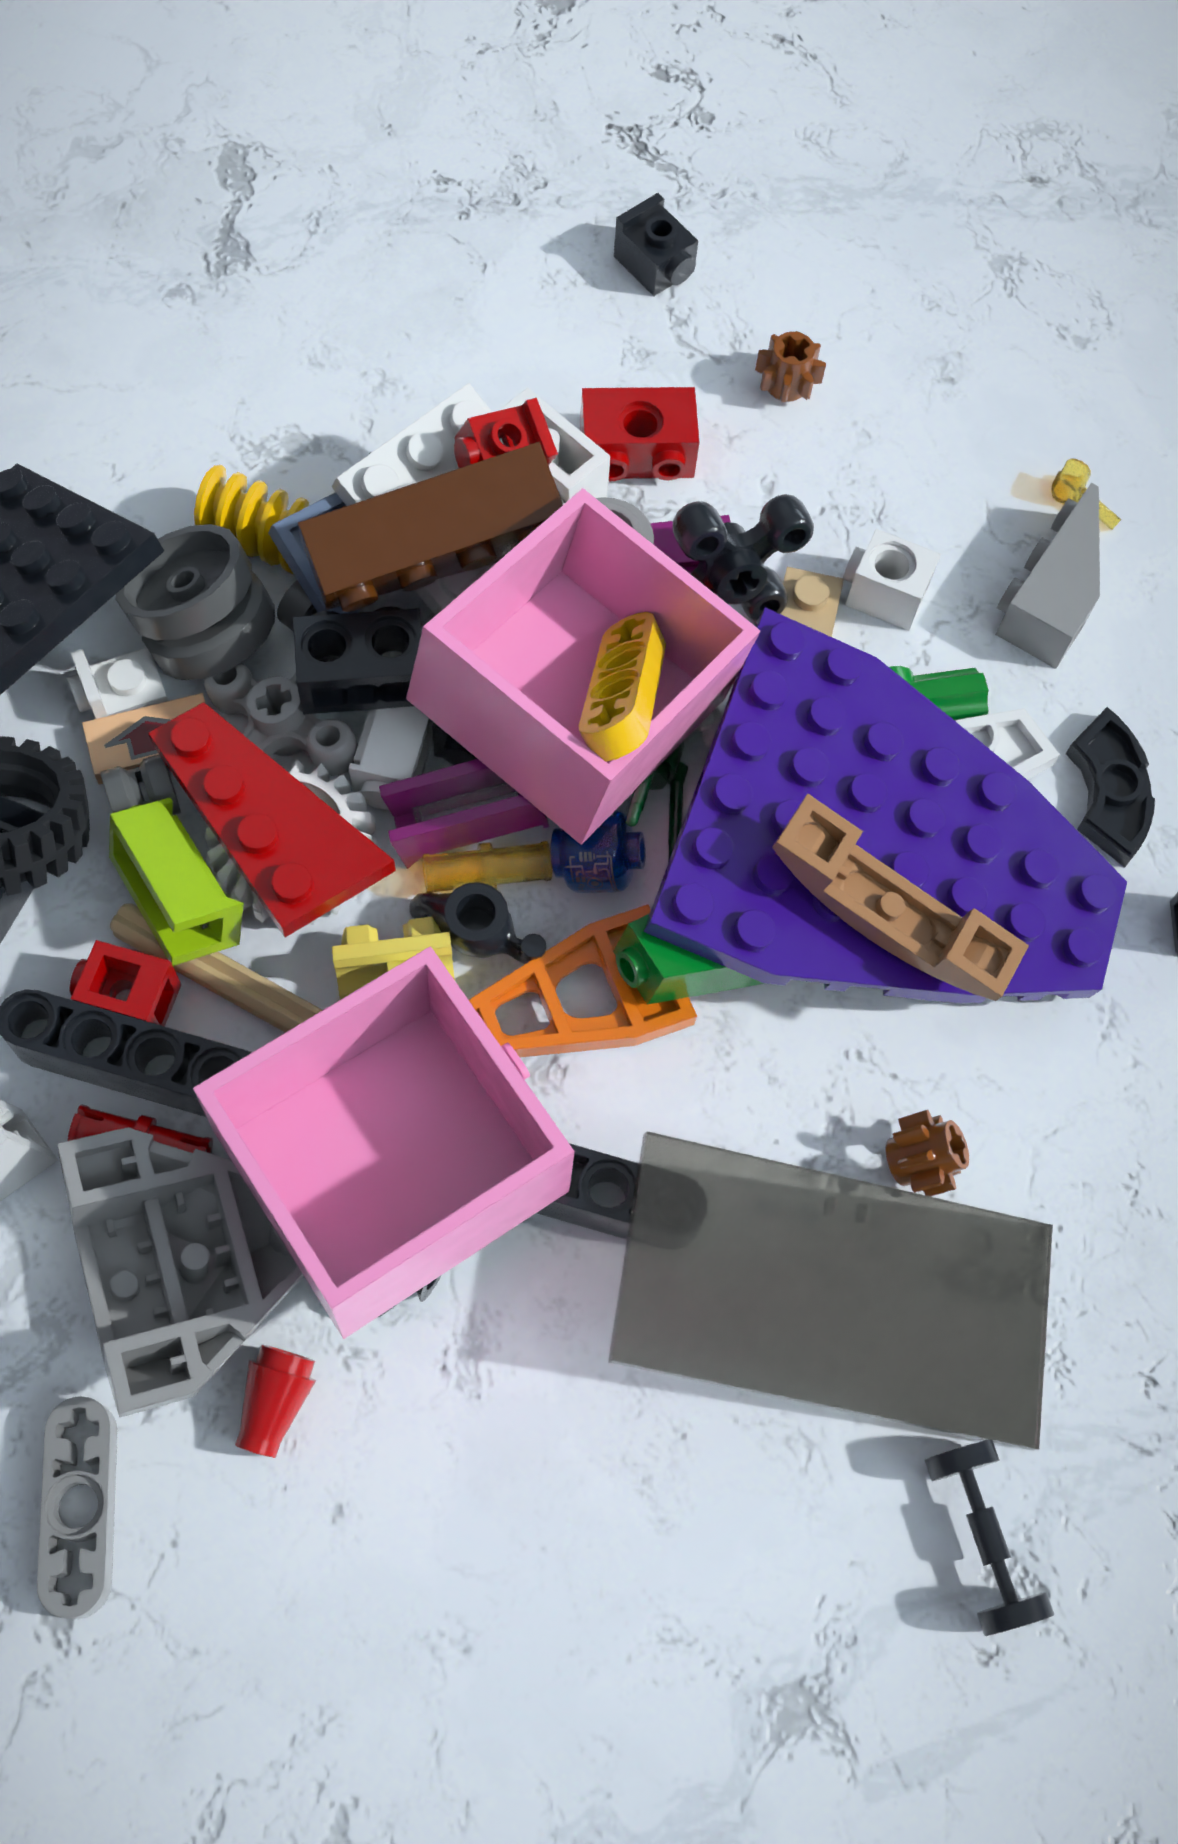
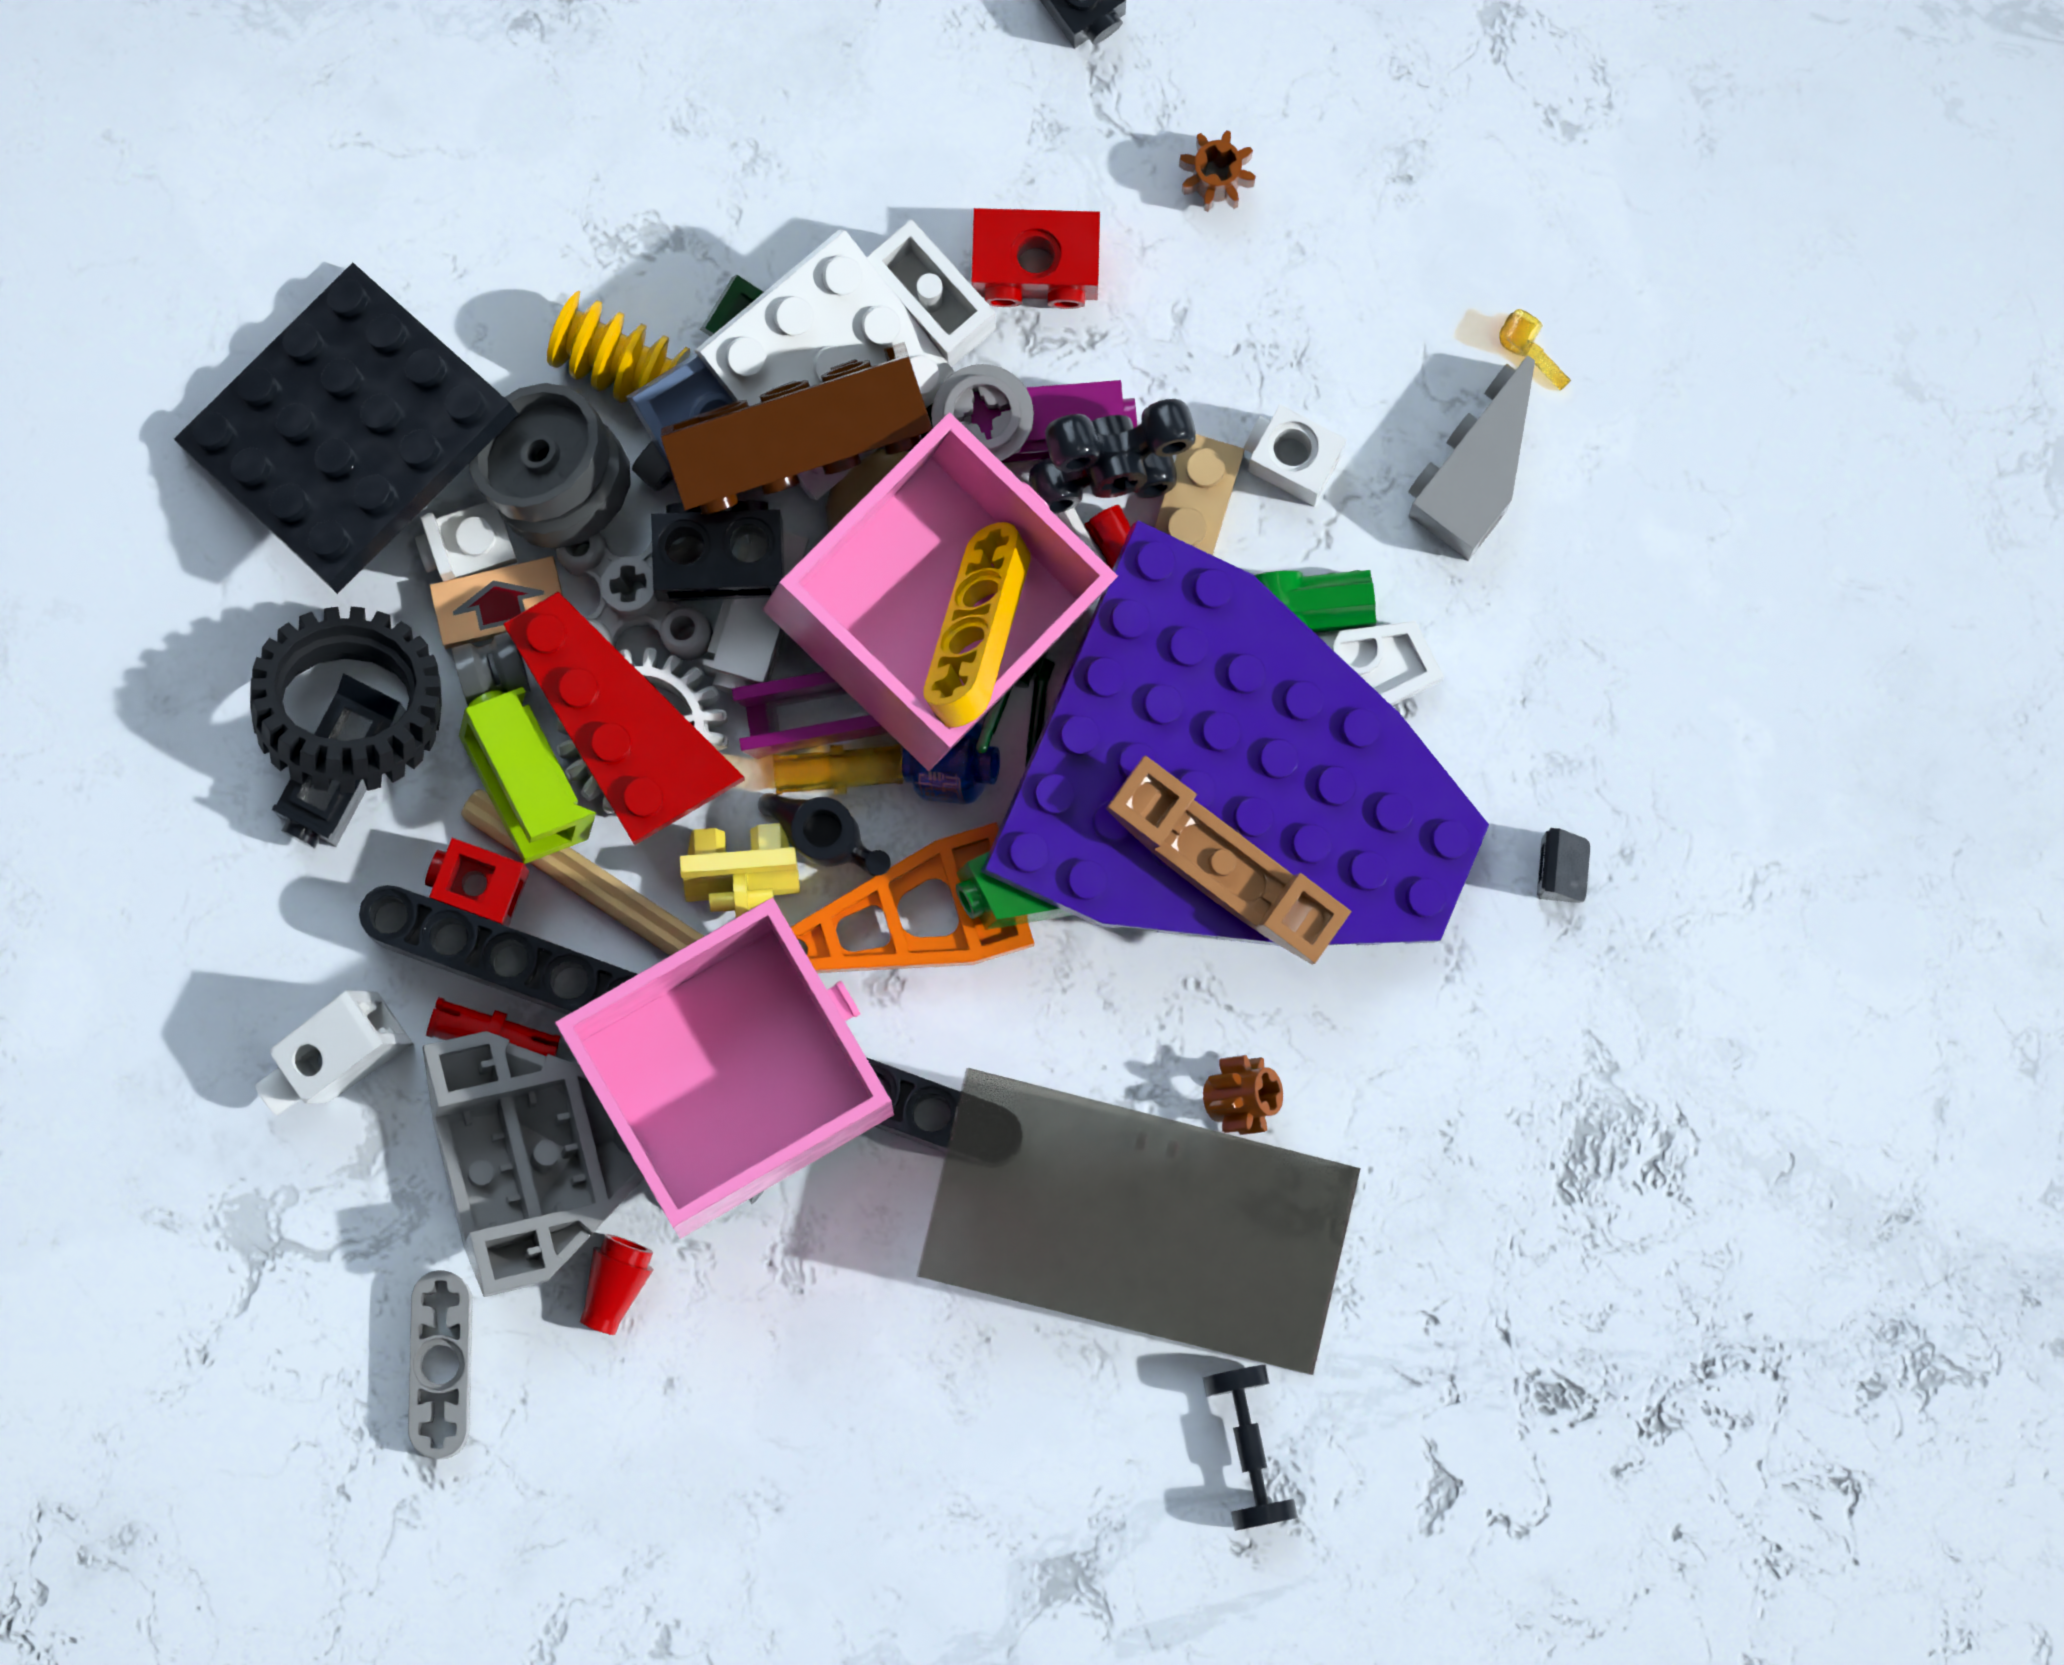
camera: 10 degrees right, 15 degrees up
(515, 426) = (851, 313): red brick -> none
(1117, 785) = (1509, 707): black tile -> none

